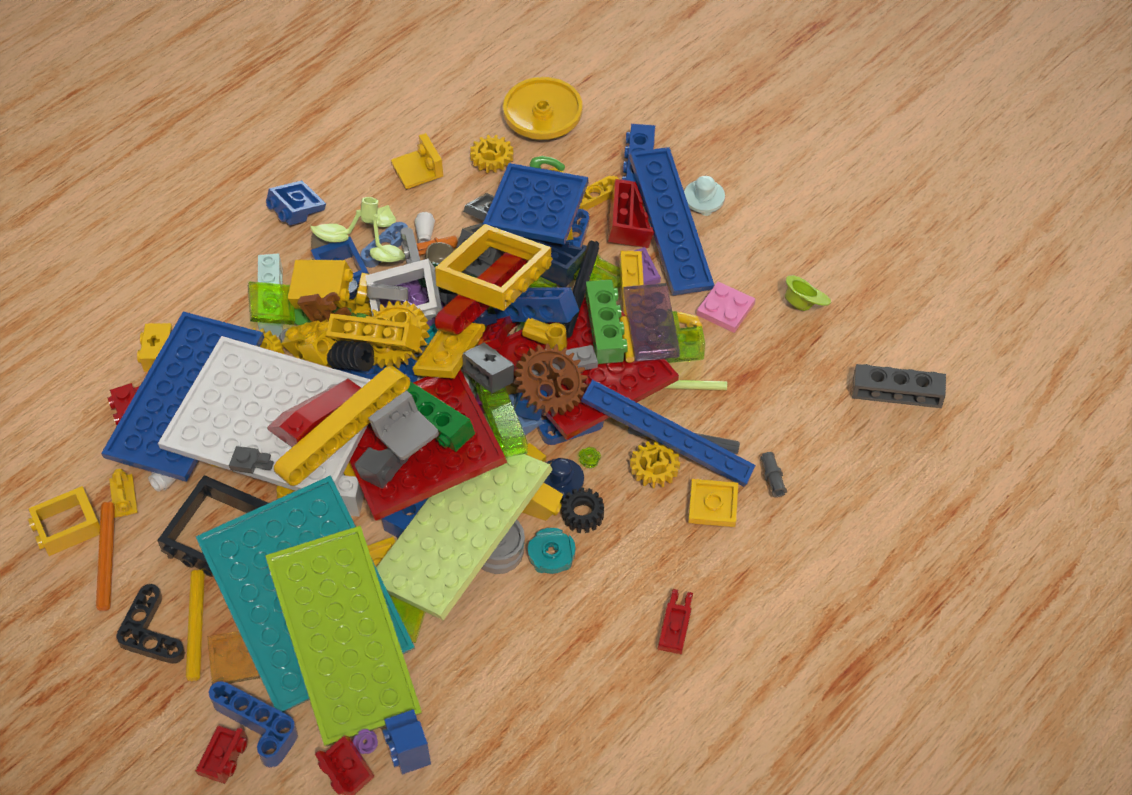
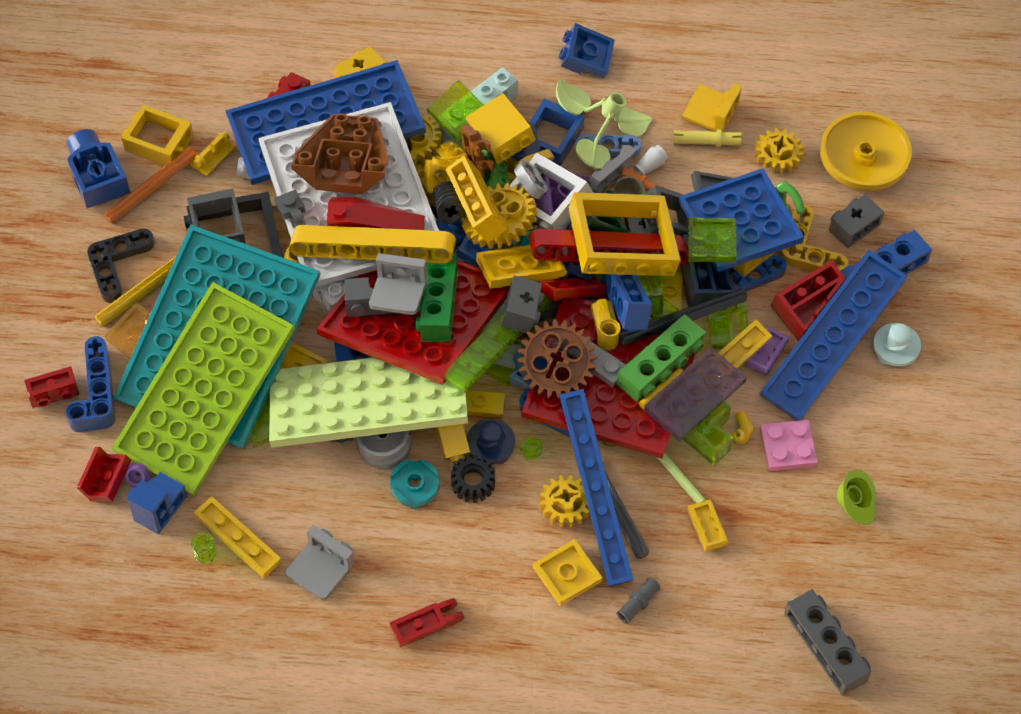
camera: 50 degrees right, 5 degrees up
(49, 583) = (95, 168): none -> blue brick
(181, 514) = (222, 202): none -> dark grey window
(244, 391) = (343, 155): none -> dark orange wedge
(445, 180) = (707, 138): none -> light yellow pin
(473, 730) = (203, 540): none -> clear neon green bush
(489, 704) = (237, 537): none -> yellow plate
(542, 224) = (712, 239): none -> clear neon green plate
(565, 659) = (321, 563): none -> light grey bracket
(589, 151) = (856, 220): none -> dark grey brick
(749, 393) = (707, 525): none -> yellow plate

